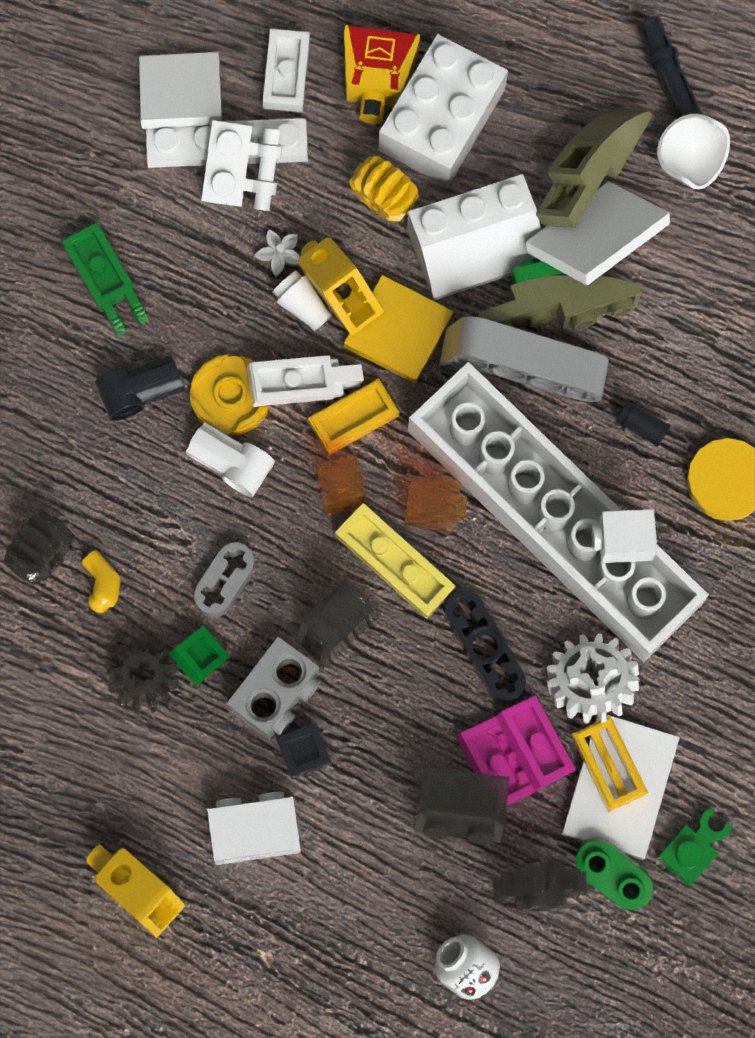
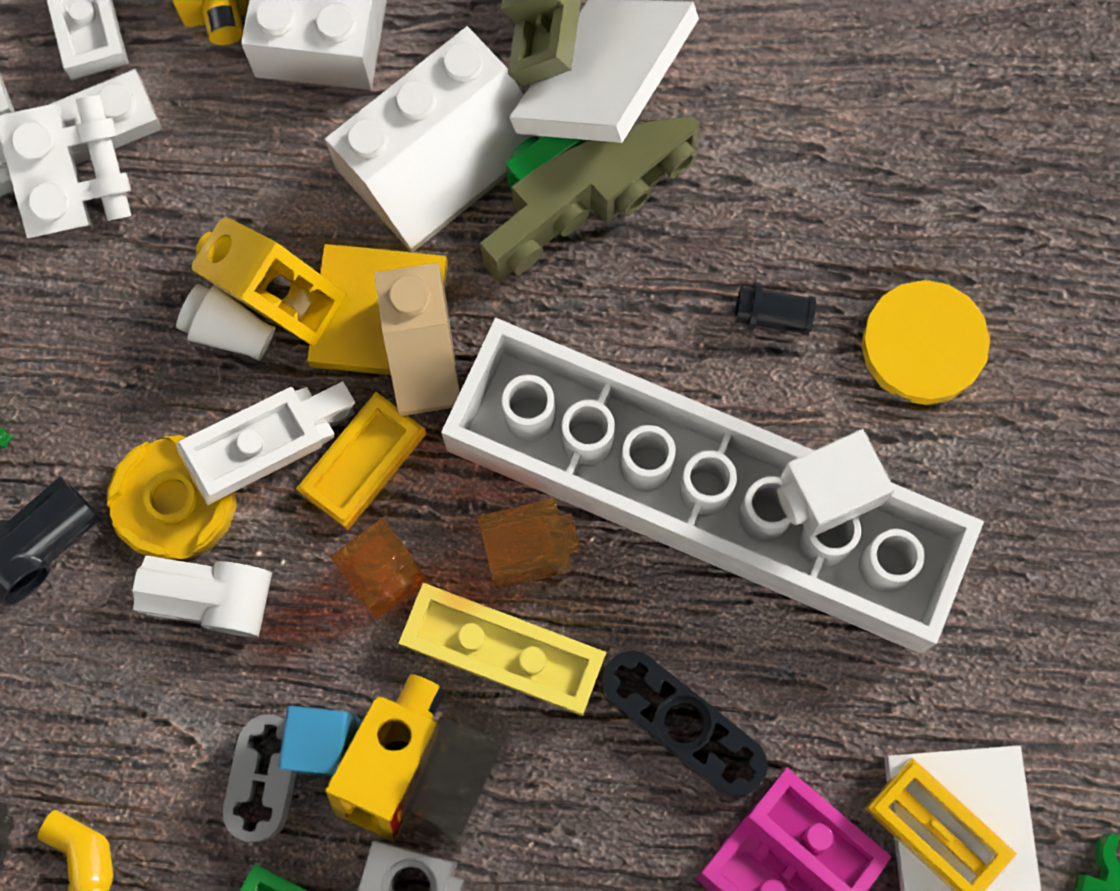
camera: 15 degrees left, 0 degrees up
(268, 570) = (316, 740): none -> dark azure piece
(279, 252) = (166, 268): white plant -> none
(300, 593) = (373, 779): none -> yellow torso
(384, 188) = (279, 121): yellow gear -> none
(417, 356) = (418, 338): none -> tan slope
(524, 358) = (570, 282): light grey beam -> none
(613, 671) = (843, 728): white gear -> none

